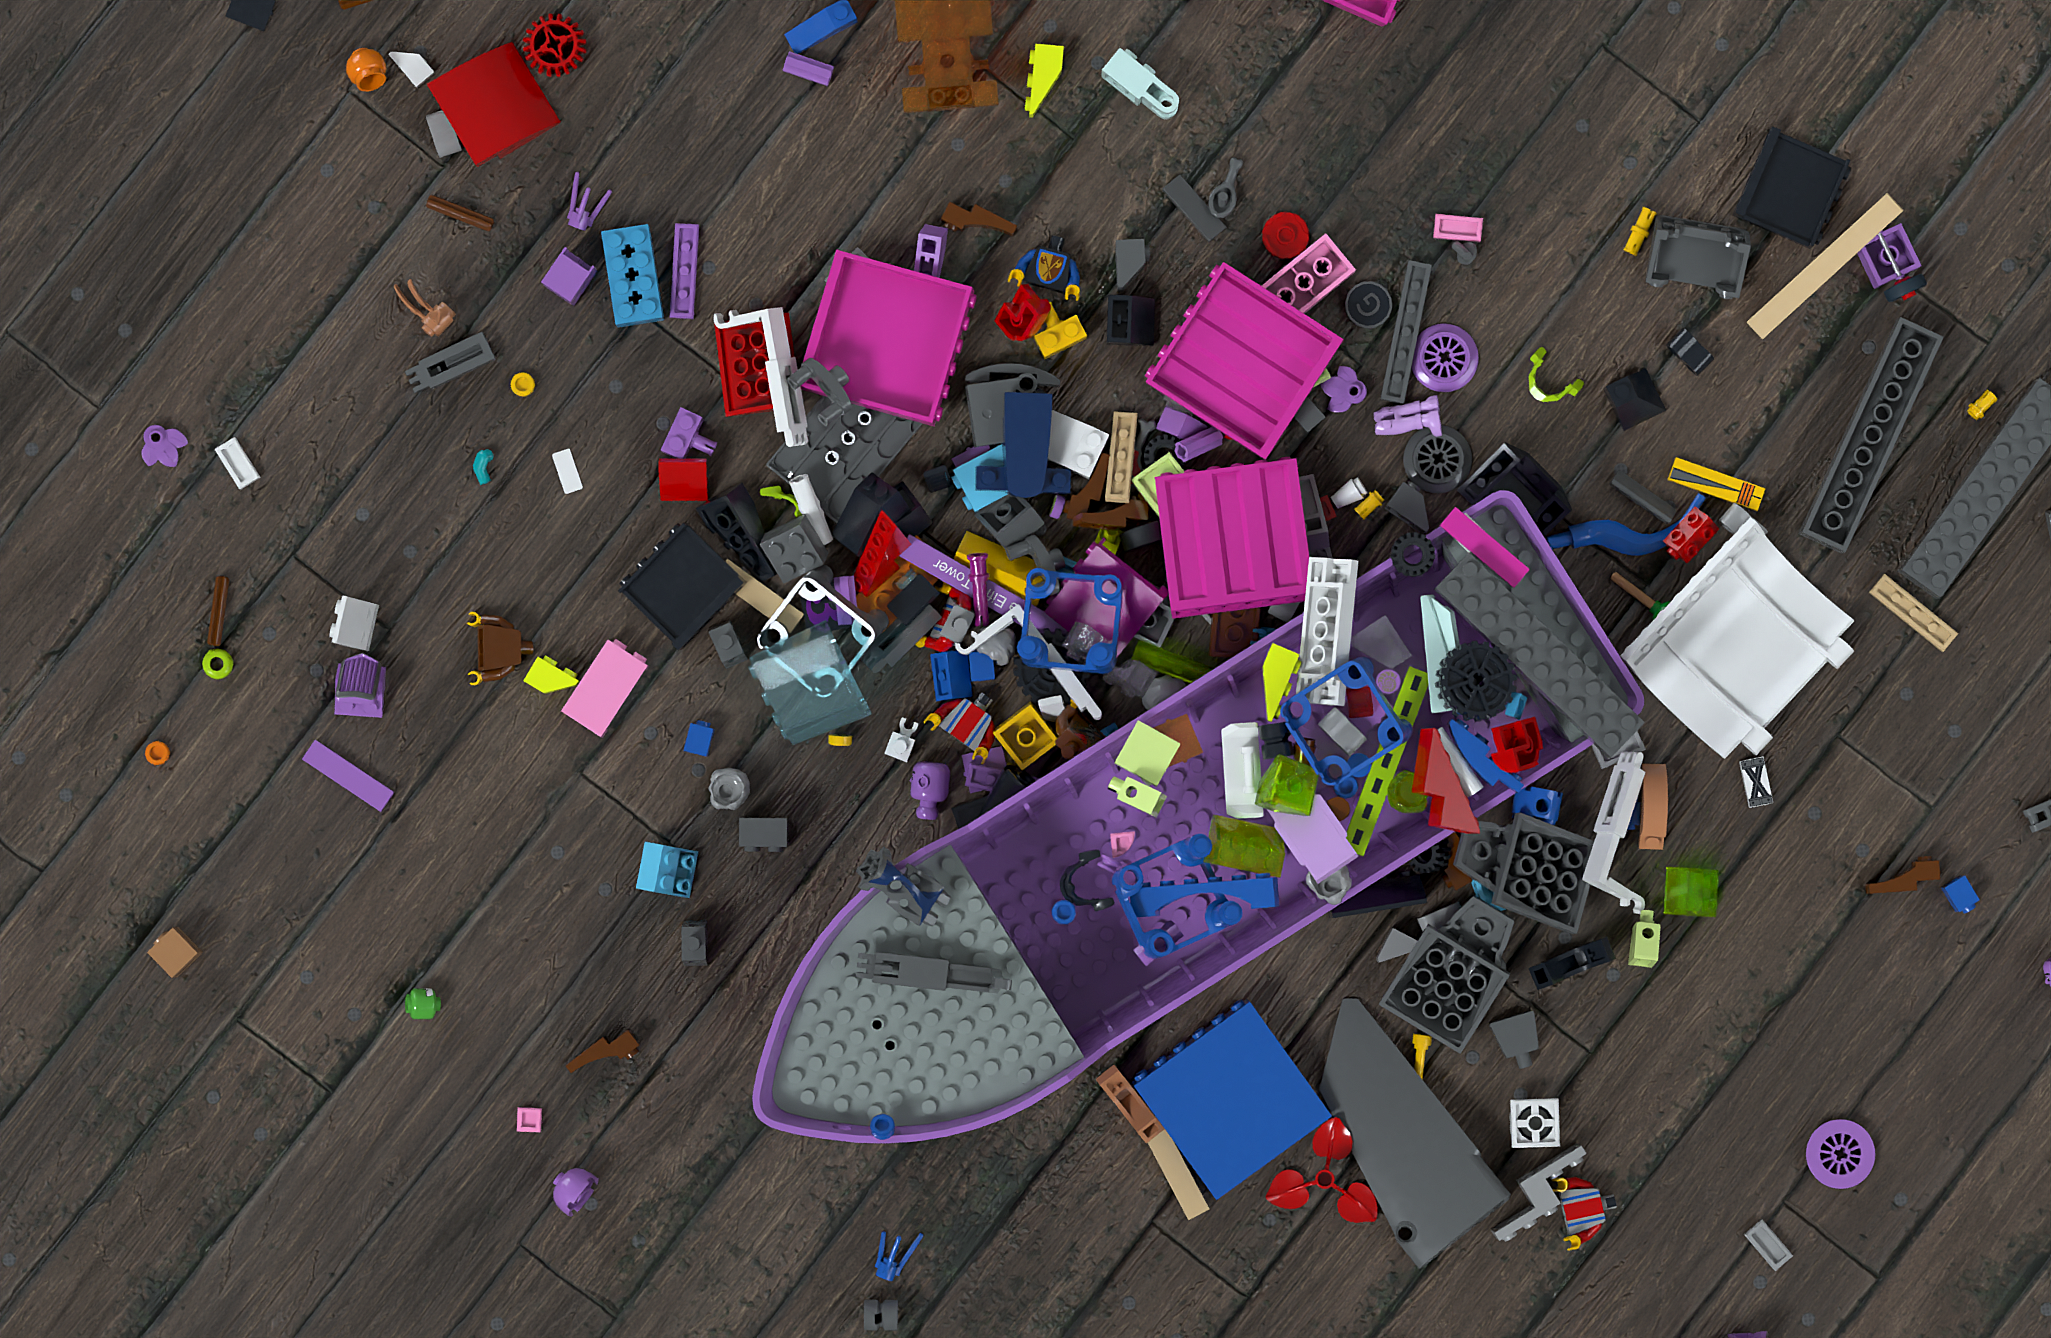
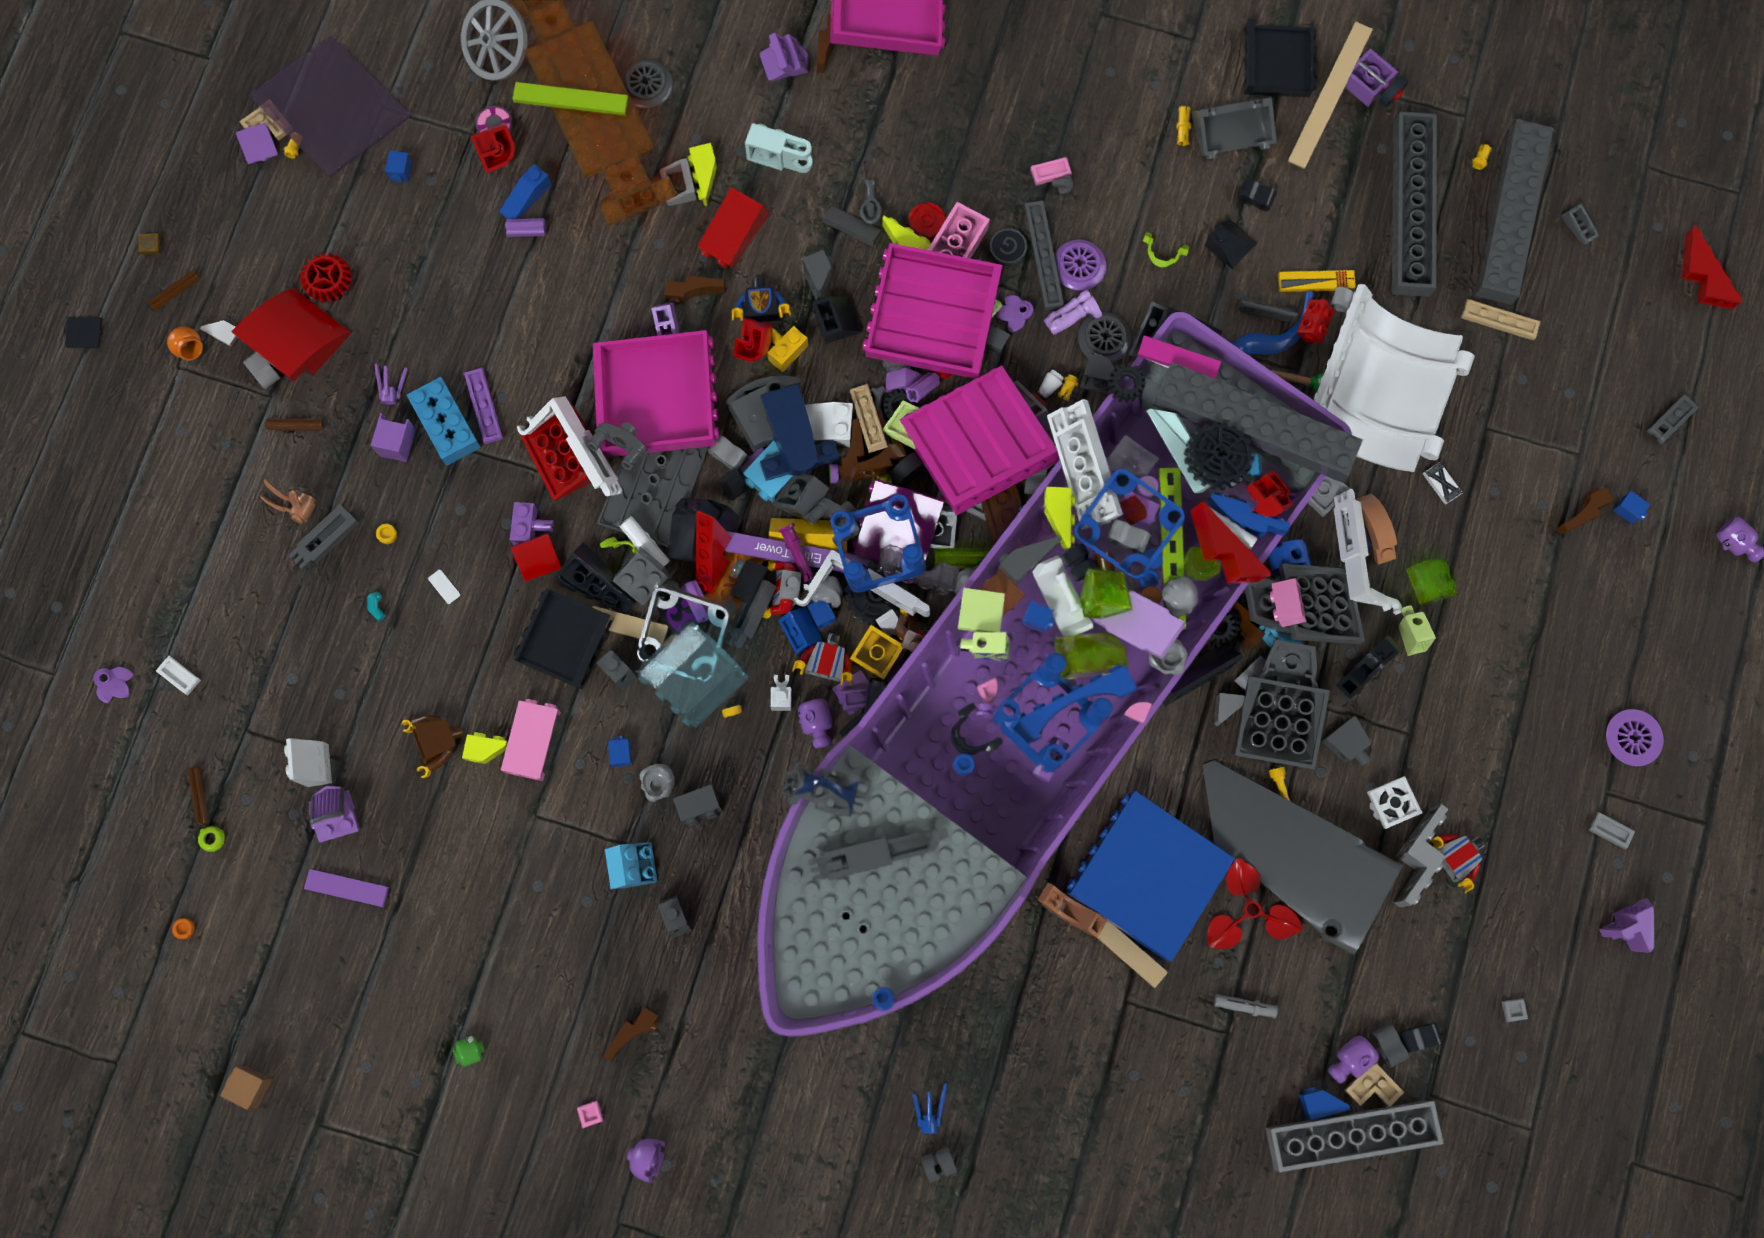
camera: 25 degrees left, 10 degrees down
(946, 438) = (728, 453): none -> light grey axle
(1021, 75) = (680, 166): none -> light grey tile
(1051, 163) = (733, 228): none -> red slope
(1207, 784) = (1038, 617): none -> blue brick
(1216, 714) = (1025, 559): none -> dark grey slope
(1249, 256) = (904, 236): none -> neon yellow slope
(1274, 927) = (1138, 711): none -> bright pink tile
(1279, 1277) = (1252, 1007): none -> light grey pin
(1369, 819) = (1179, 596): none -> light grey hair
(1501, 862) = (1288, 602): none -> bright pink brick

